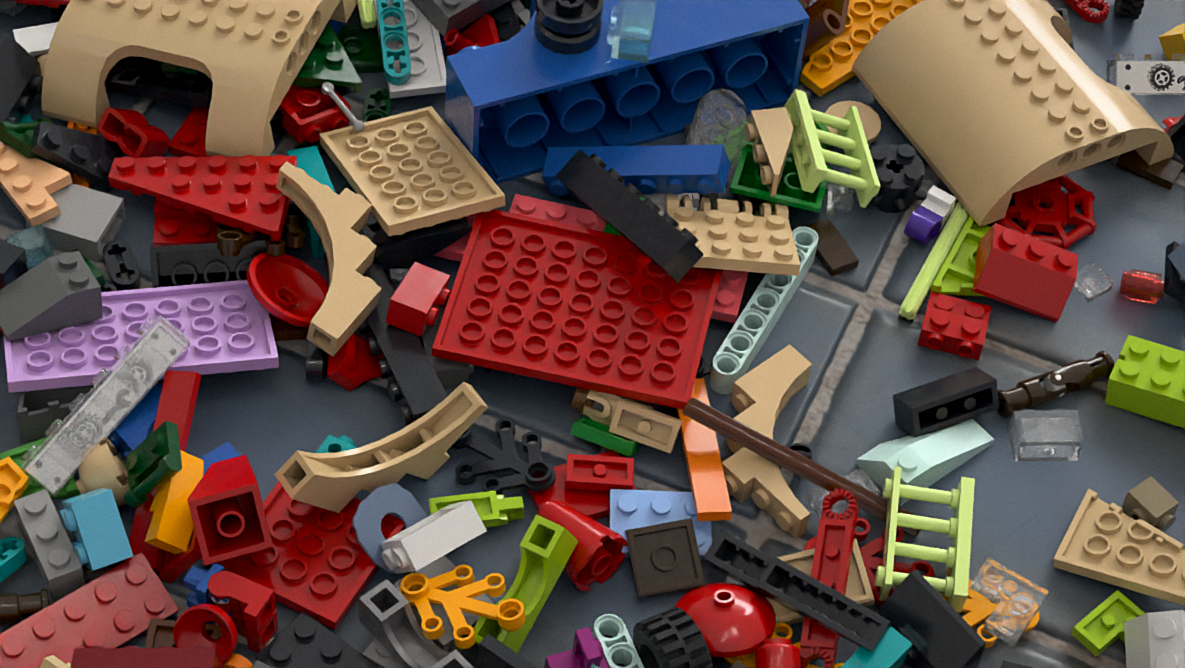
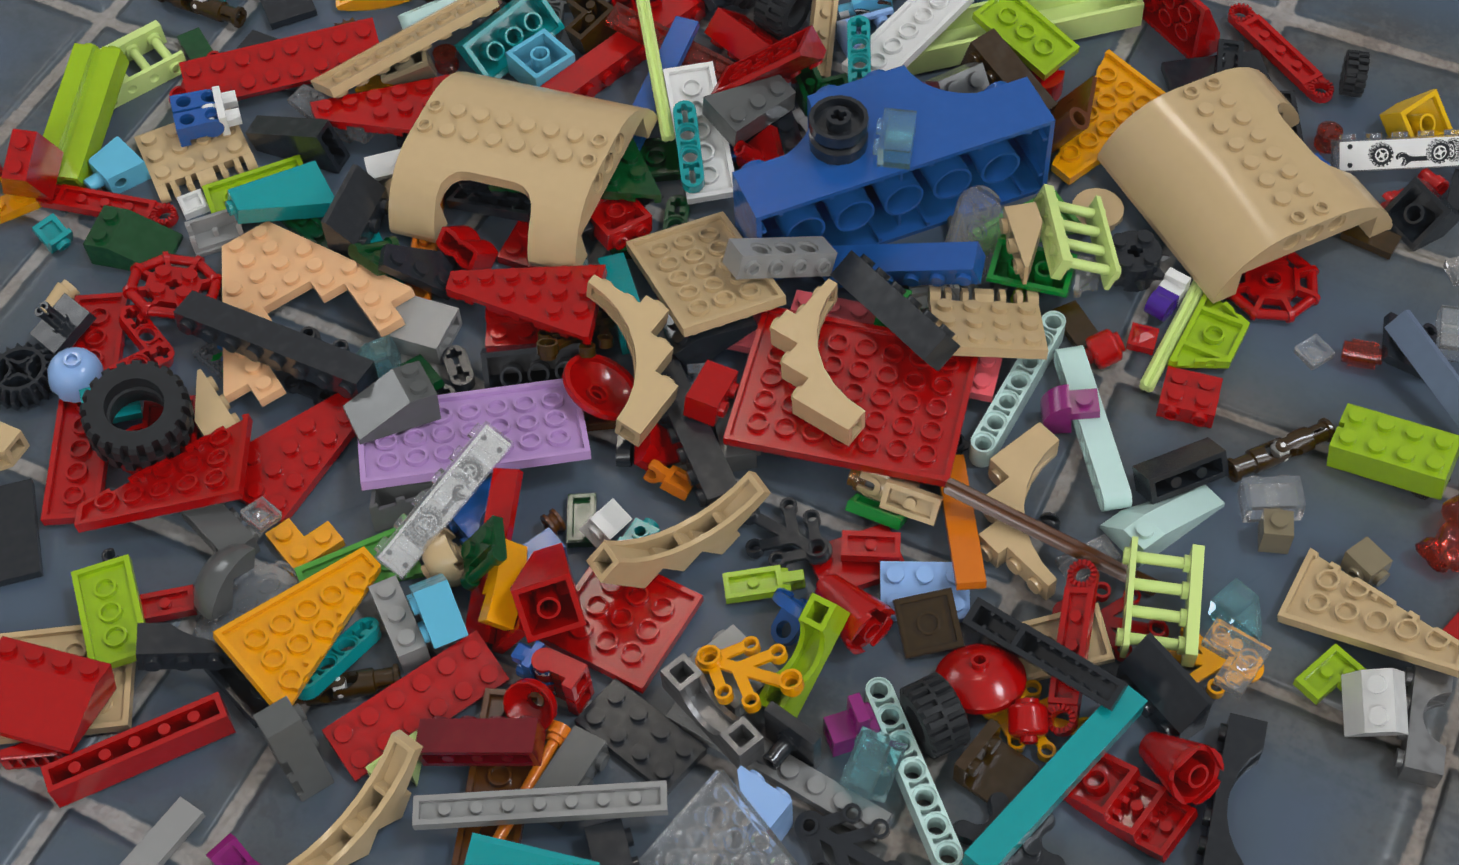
camera: 10 degrees right, 5 degrees up
(232, 435) = (553, 521): none -> reddish brown bush
(265, 437) = (579, 511): none -> tile
(295, 435) = (605, 523): none -> white brick
(327, 89) = (632, 202): light grey hinge -> none
(371, 395) = (673, 479): none -> orange plate
(373, 508) = (668, 602): sand blue piece -> none
(432, 537) = (724, 611): white window -> none
(497, 154) = (779, 257): none -> light grey brick
(505, 544) = (790, 612): none -> blue tile
(539, 303) = (815, 396): none -> tan arch
(814, 328) = (1062, 405): none -> magenta brick
(848, 355) = (1094, 434): none -> light aqua beam
(860, 270) = (1104, 348): none -> red head
(902, 262) = (1142, 338): none -> red tile
(1010, 547) = (1238, 607): none -> clear light blue slope
(1024, 272) = (1253, 346): red slope -> none
(1051, 469) = (1275, 530): none -> dark tan brick
(1100, 54) = (1325, 133): none -> clear red wheel

